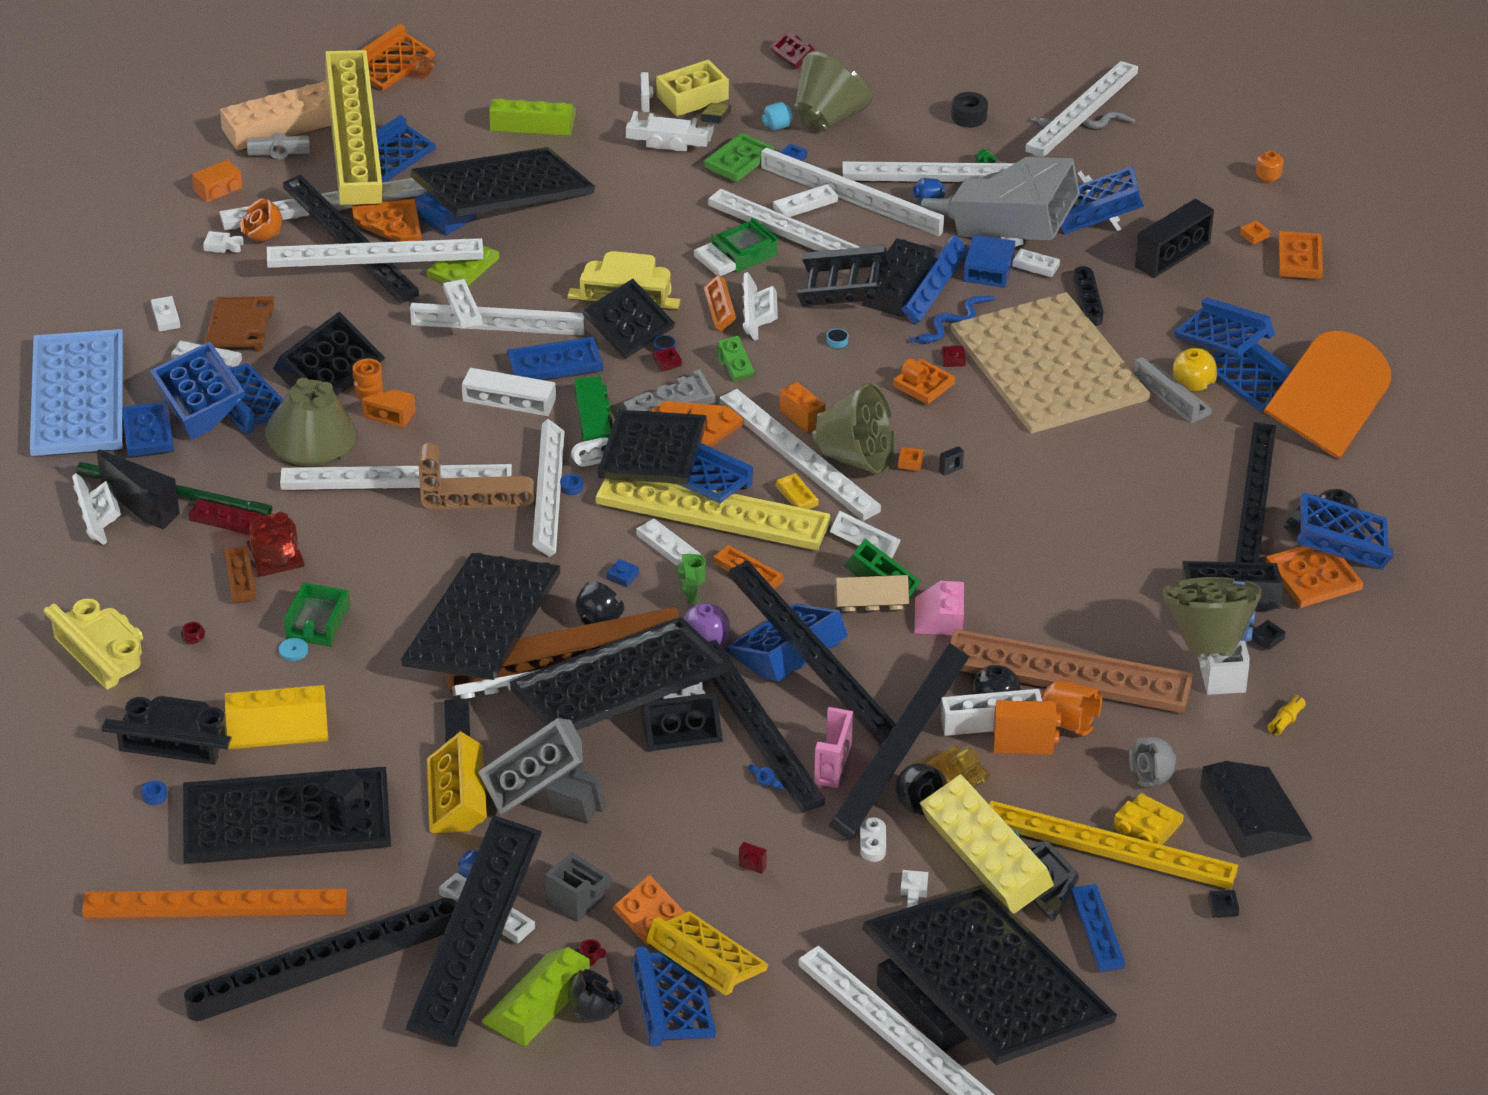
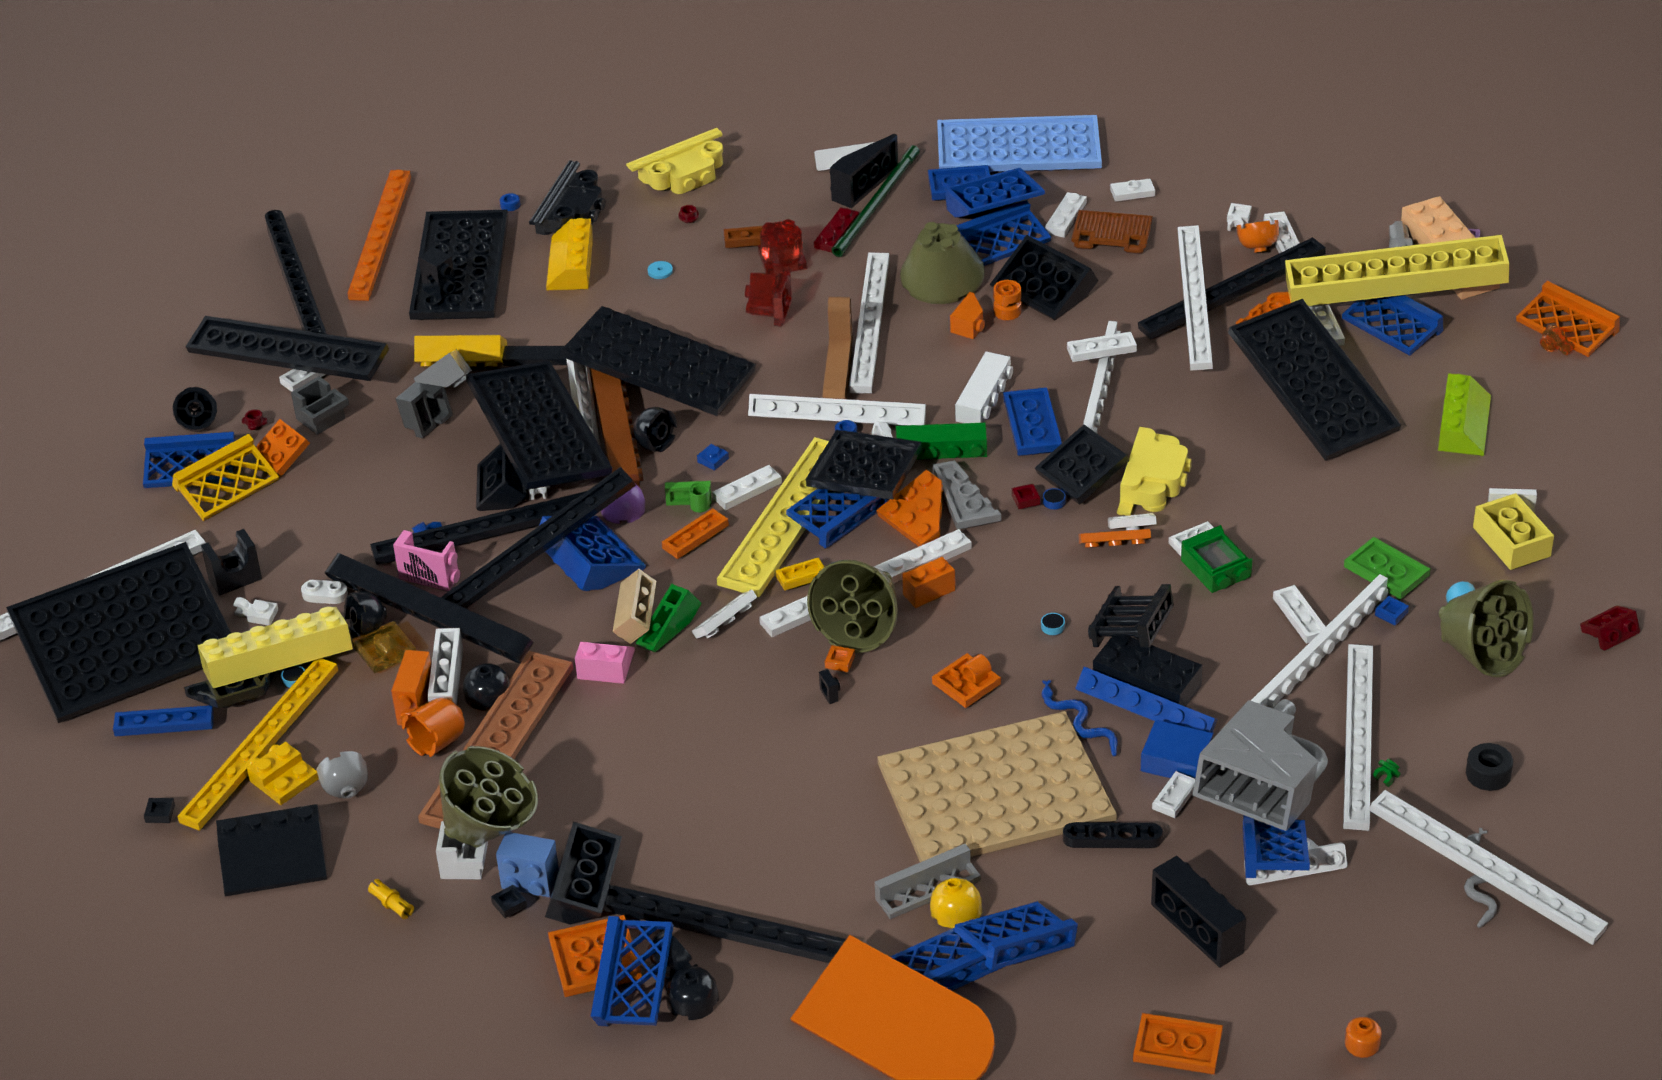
camera: 100 degrees right, 0 degrees up
(217, 180) = (1338, 210): orange brick -> none
(316, 614) = (692, 274): green window -> none
(368, 539) = (770, 295): none -> clear red piece
(463, 269) = (1208, 380): lime plate -> none
(536, 996) = (231, 397): lime slope -> none
(669, 132) = (1423, 507): white bracket -> none
(697, 293) = (1131, 522): none -> white plate
(715, 113) = (1463, 547): tile -> none
(733, 355) = (1024, 538): bright green plate -> none
(752, 857) = (321, 511): dark red plate -> none
(759, 306) = (1106, 561): white bracket -> none
(777, 222) = (1252, 594): white plate -> none
(853, 905) = (234, 569): none -> black piece
(928, 189) = (1312, 712): blue head -> none
(953, 356) = (1012, 711): dark red plate -> none
(1254, 232) = (1227, 1005): orange plate -> none

